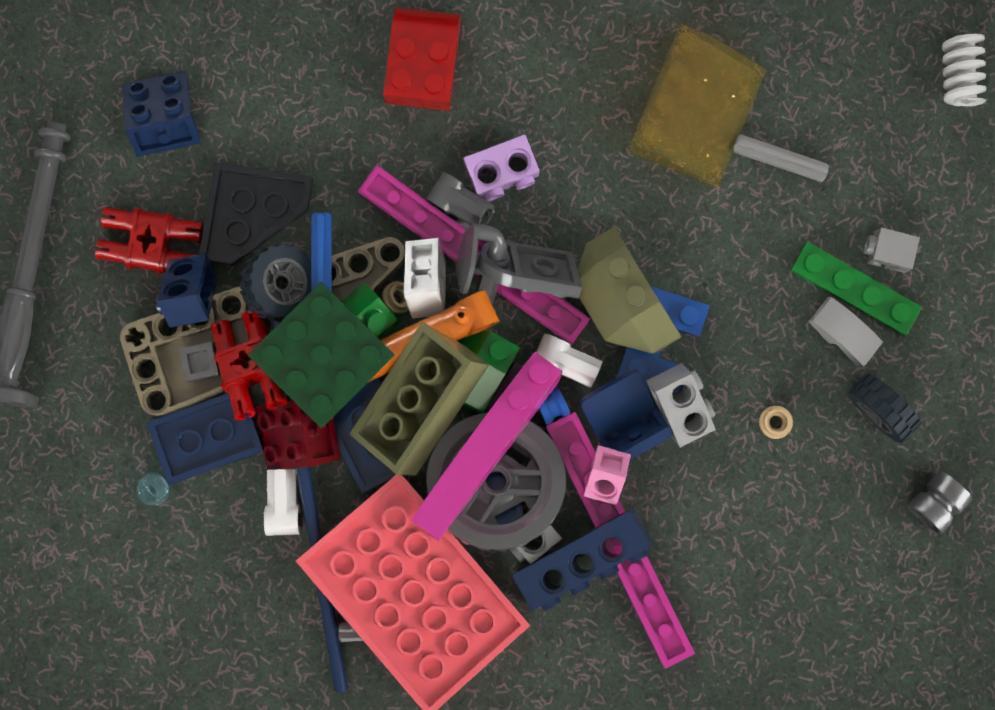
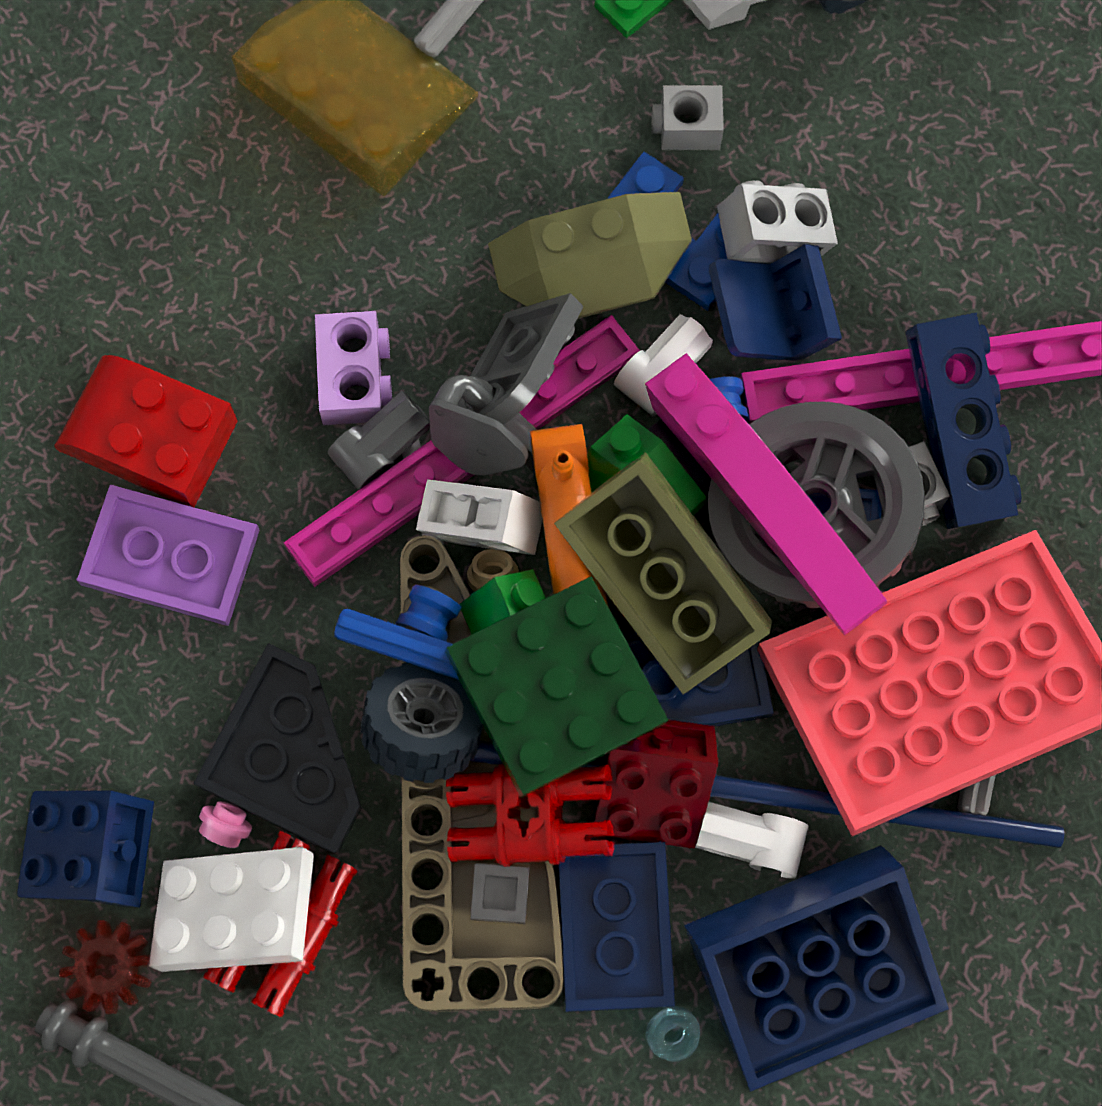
camera: 70 degrees left, 10 degrees down
(89, 161) = (100, 987): none -> clear red gear
(144, 210) = (232, 910): none -> white plate
(187, 290) = (384, 876): dark blue brick -> none
(196, 188) = (224, 824): none -> bright pink plate
(217, 561) = (818, 966): none -> dark blue slope
(349, 99) = (168, 555): none -> medium lavender plate
(349, 265) = (429, 612): none -> blue wheel
(607, 475) = (852, 345): bright pink brick -> none
(735, 341) = (698, 101): none -> light grey brick
(786, 422) = (839, 104): tan plate -> none

